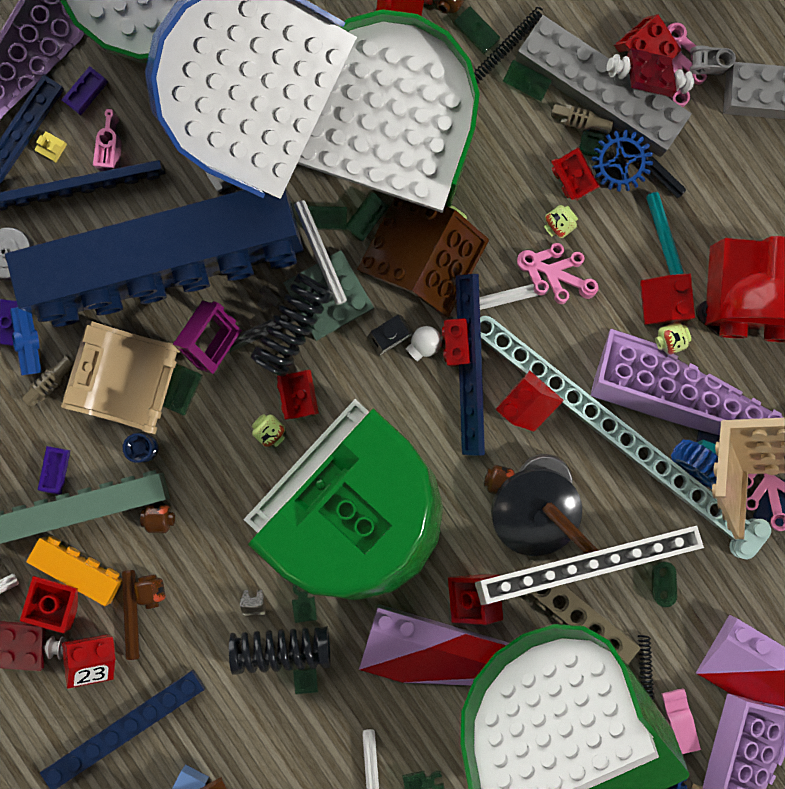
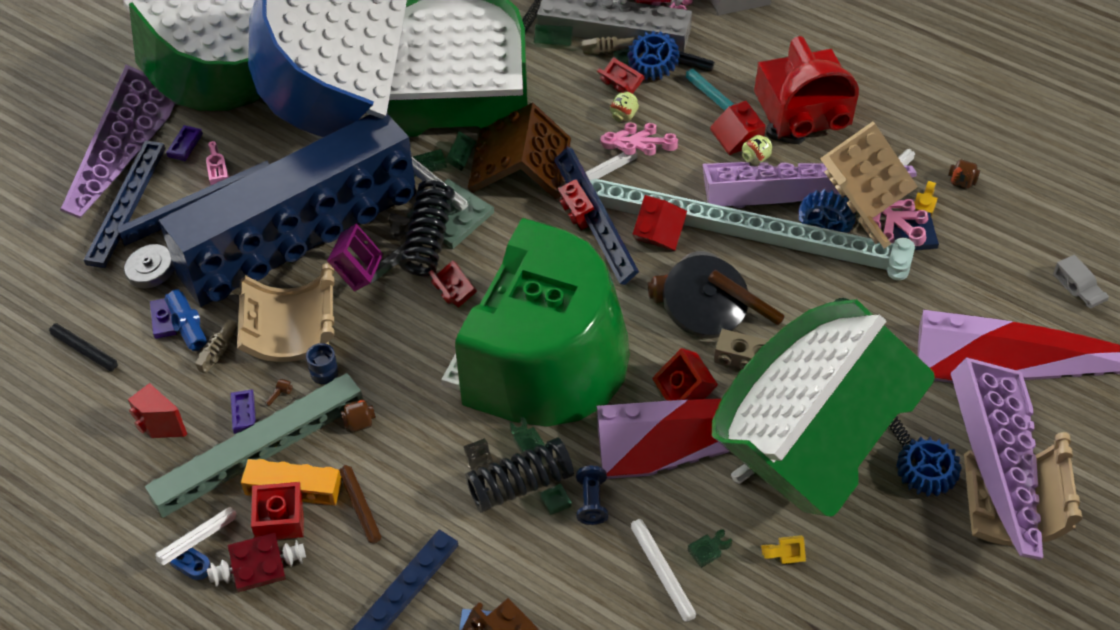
camera: 20 degrees left, 35 degrees down
(50, 146) = (164, 187): light yellow tile -> none
(89, 660) = (332, 545): red slope -> none
(99, 454) = (282, 386): none -> reddish brown hand
(149, 591) = (371, 475): reddish brown head -> none
(181, 389) = (345, 313): clear green plate -> none
(268, 430) = (436, 317): yellowish green head -> none
(338, 693) = (592, 512): none -> dark blue hose
(389, 334) = (512, 212): black torso -> none
(424, 342) = (550, 213): white piece -> none
(588, 565) = (768, 309): white brick -> none
(681, 720) = (930, 419): bright pink piece -> none

